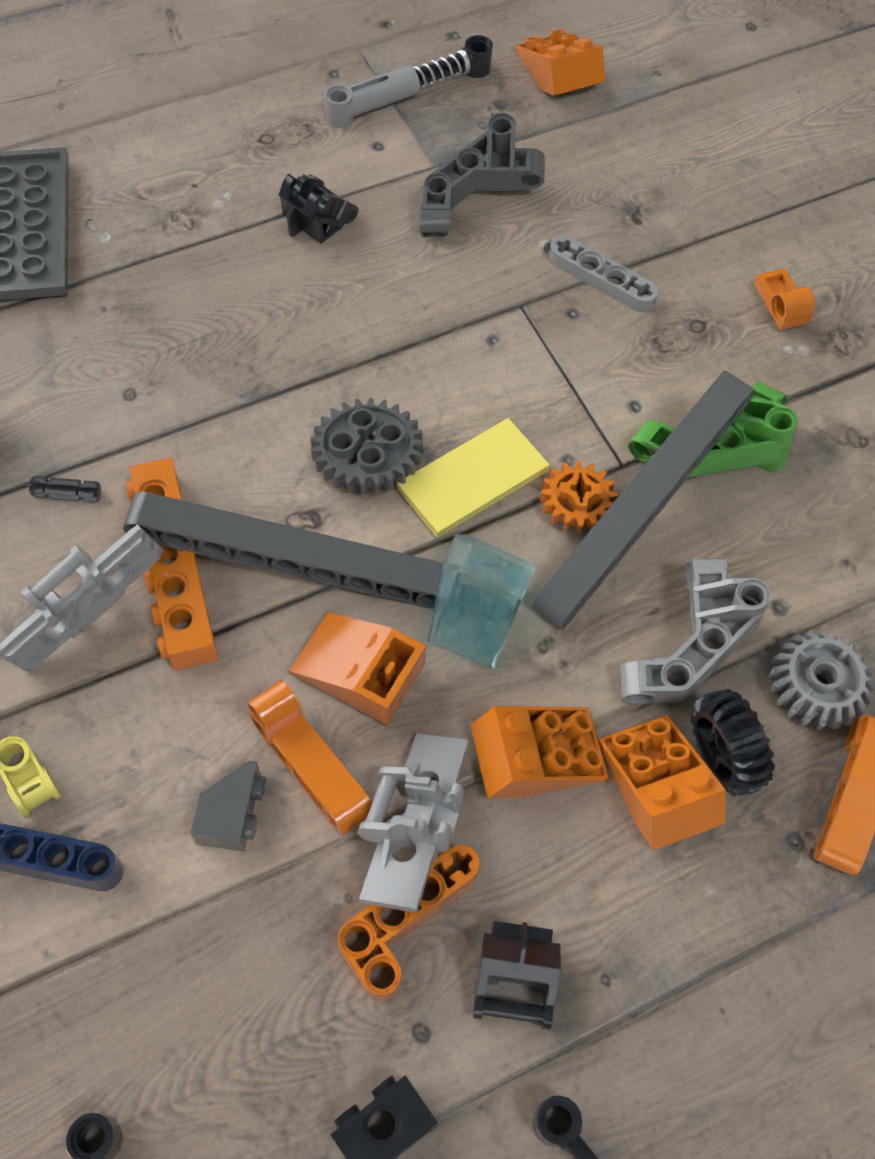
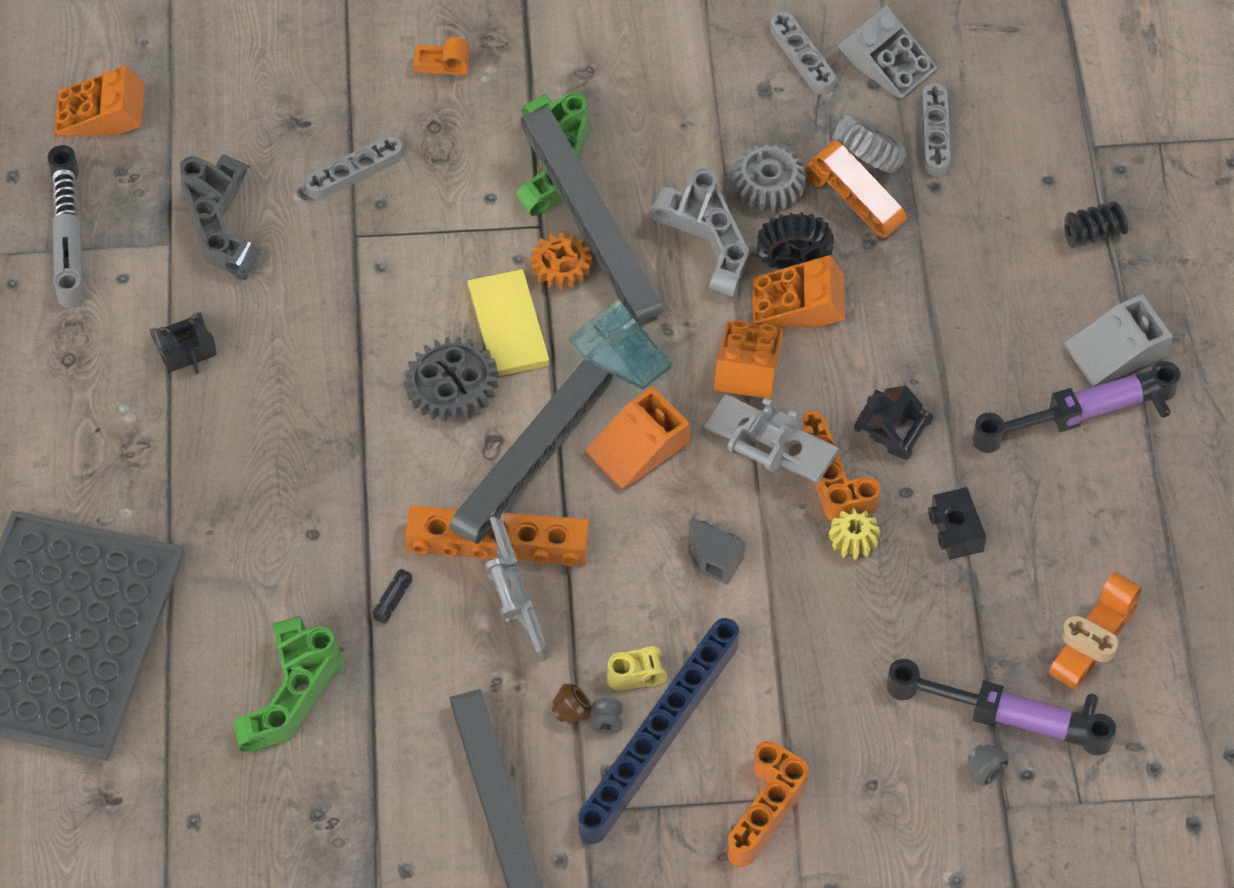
camera: 65 degrees left, 5 degrees down
(308, 757) = (697, 493): orange beam -> none
(315, 999) = (854, 534): none -> light yellow gear

